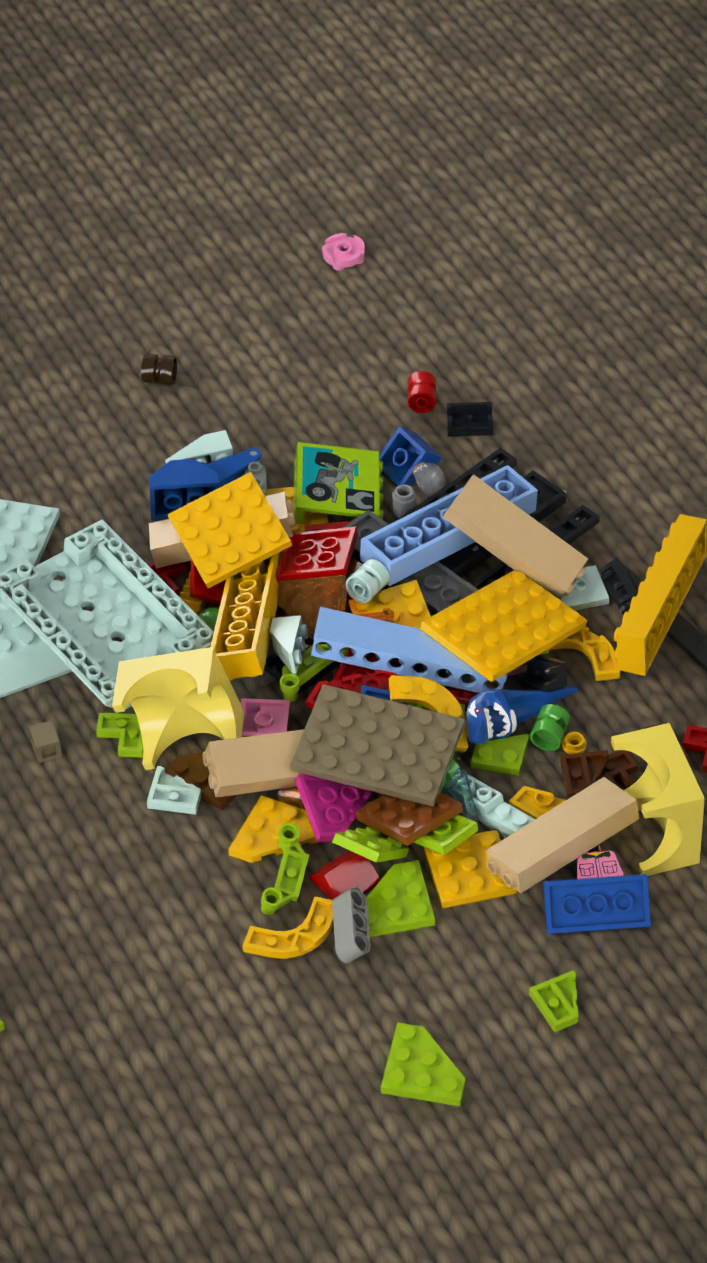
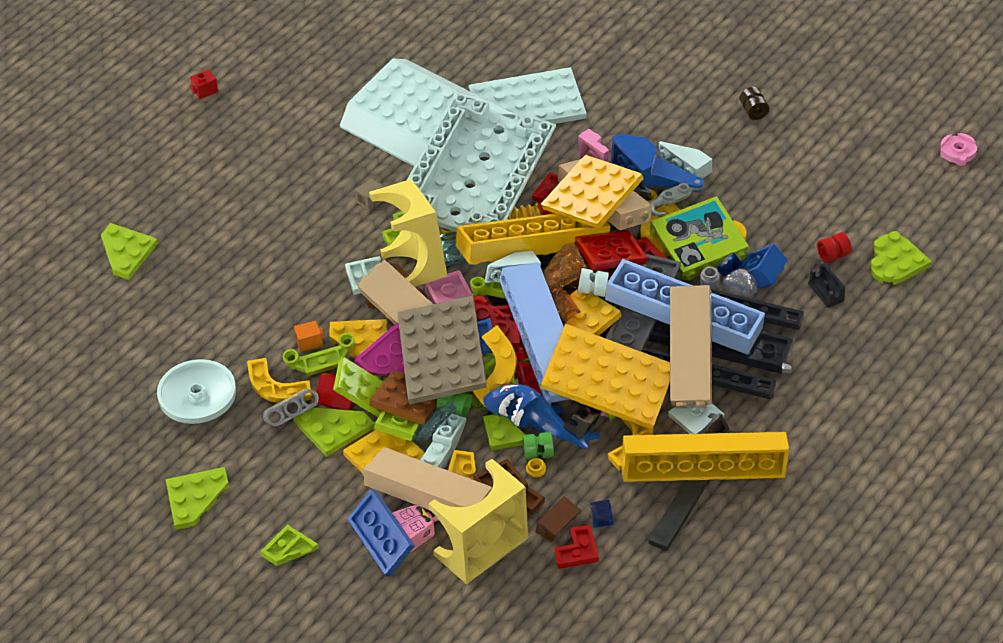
camera: 65 degrees right, 0 degrees up
(136, 516) = (591, 145): none -> bright pink plate
(244, 873) = (308, 336): none -> orange brick
(264, 1008) = (196, 391): none -> light aqua dish
(393, 478) = (730, 264): none -> clear blue slope
(464, 356) = (896, 259): none -> lime plate
(673, 713) = (601, 513): none -> clear blue slope

